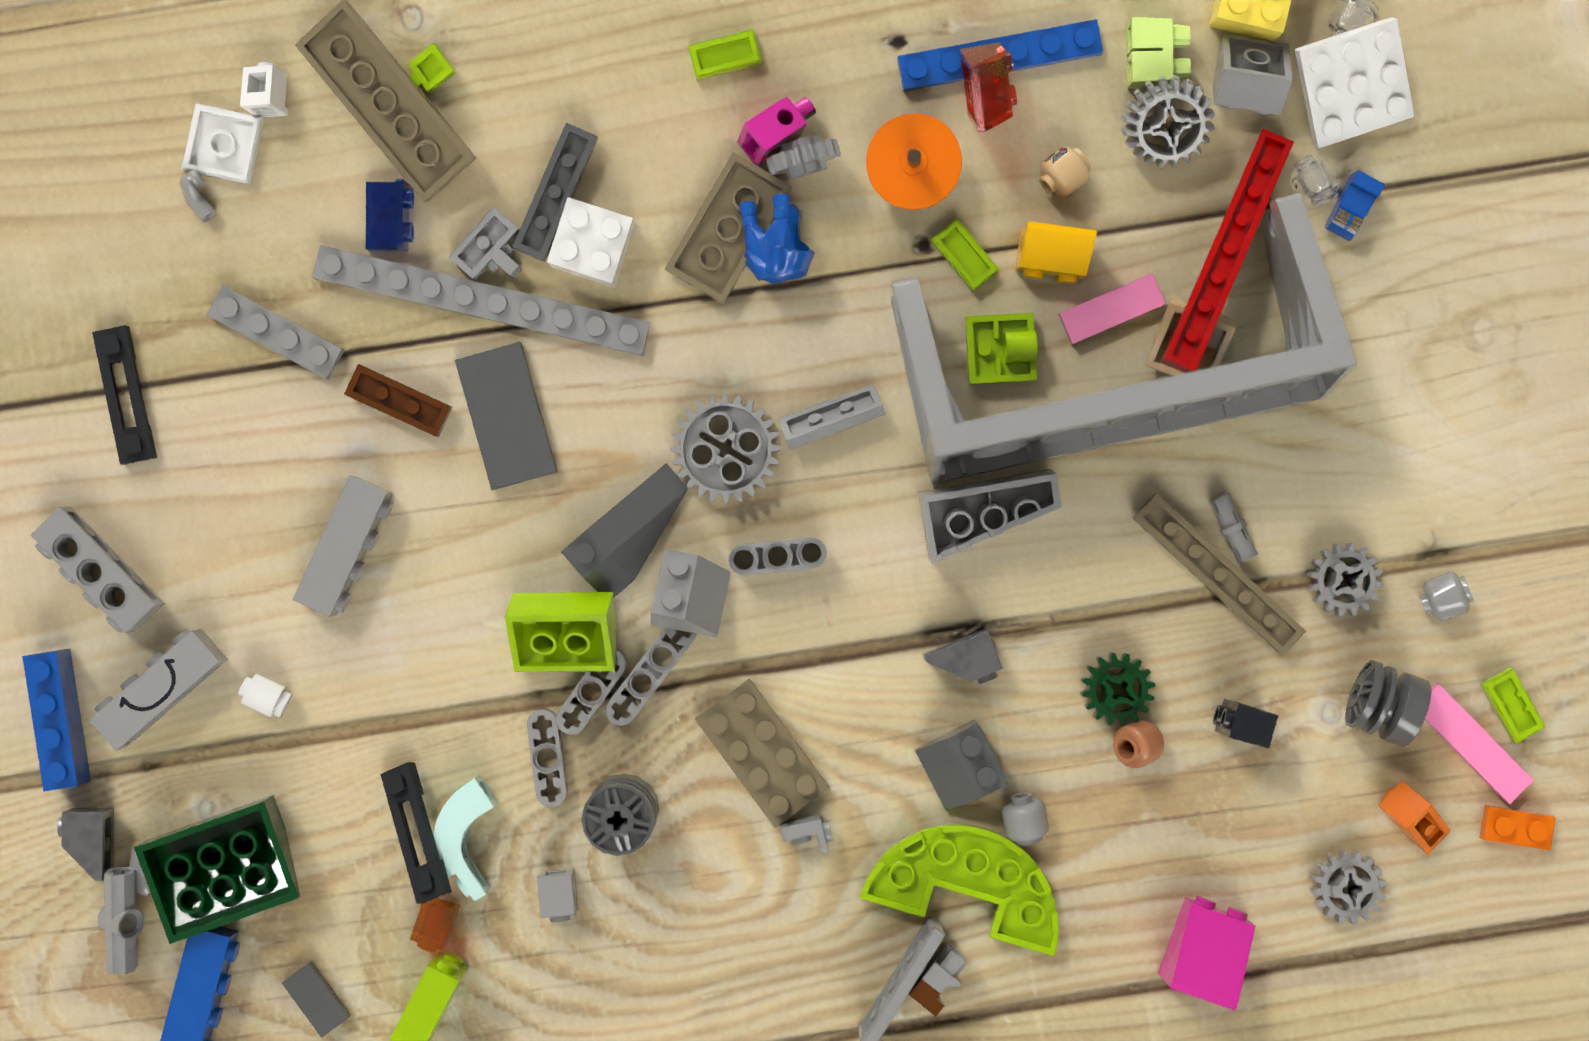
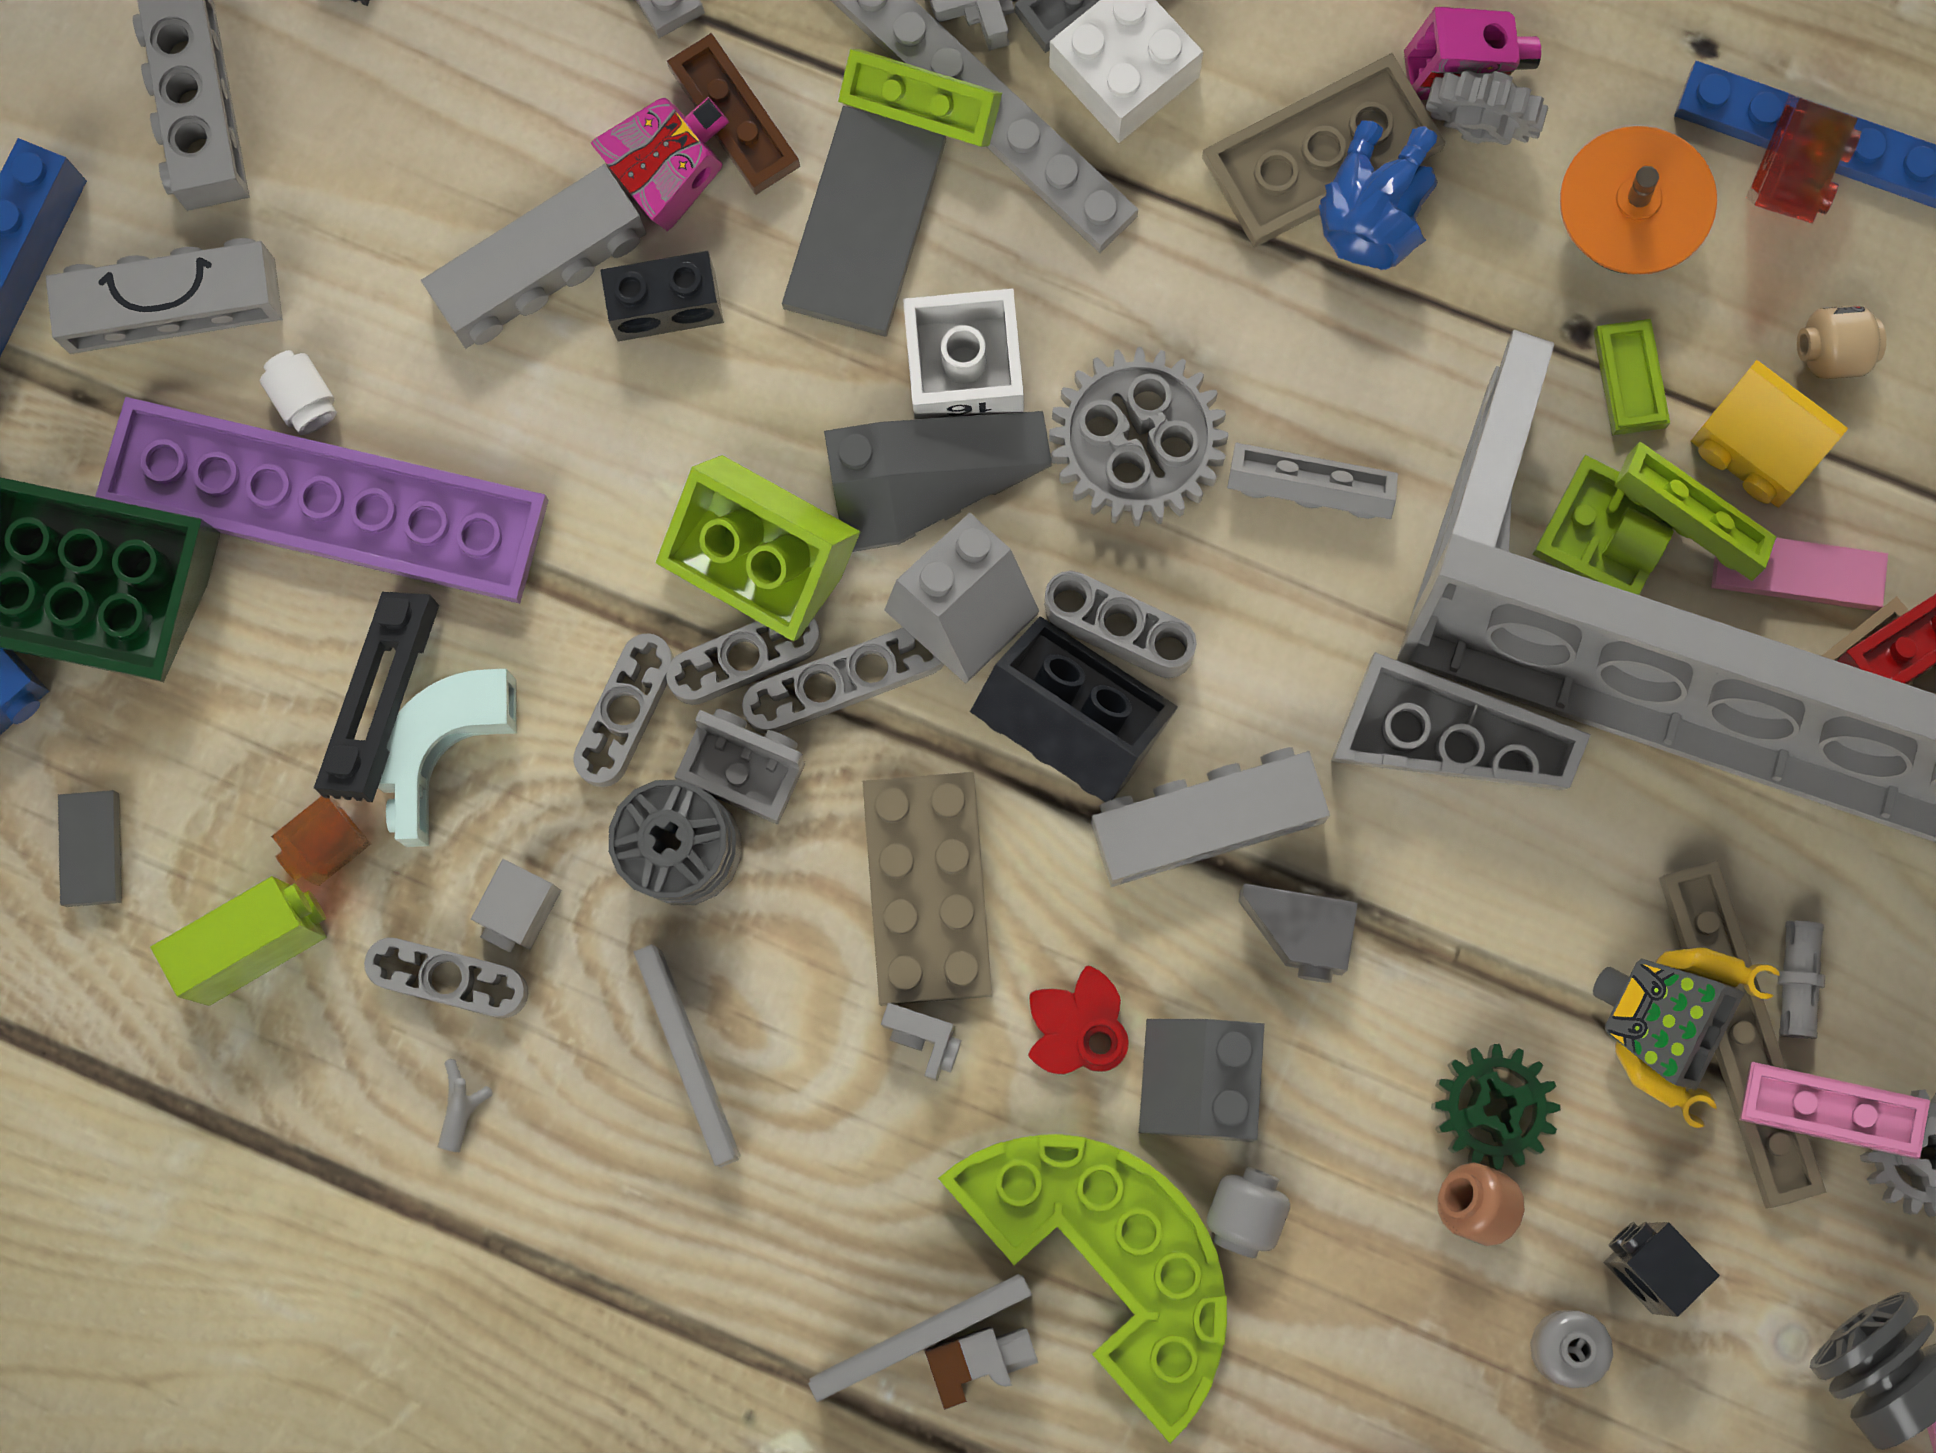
camera: 35 degrees right, 10 degrees down
(315, 745) = (325, 499): none -> medium lavender plate
(377, 450) = (664, 156): none -> torso
(425, 526) = (662, 296): none -> black brick
(494, 332) = (920, 97): none -> lime plate
(518, 950) = (411, 952): none -> light grey beam
(594, 1011) = (458, 1108): none -> light grey bar
(607, 463) = (964, 354): none -> white brick
(627, 751) = (742, 765): none -> light grey bracket
(694, 915) = (687, 1055): none -> light grey tile
(781, 615) = (1073, 709): none -> black slope
(877, 774) = (1072, 1019): none -> red plate
(885, 630) = (1209, 817): none -> light grey brick
(1041, 316) = (1695, 511): none -> lime plate
(1181, 590) = (1673, 1019): none -> torso
(1235, 789) = (1591, 1349): none -> light grey head
(1287, 589) = (1835, 1110): none -> bright pink tile

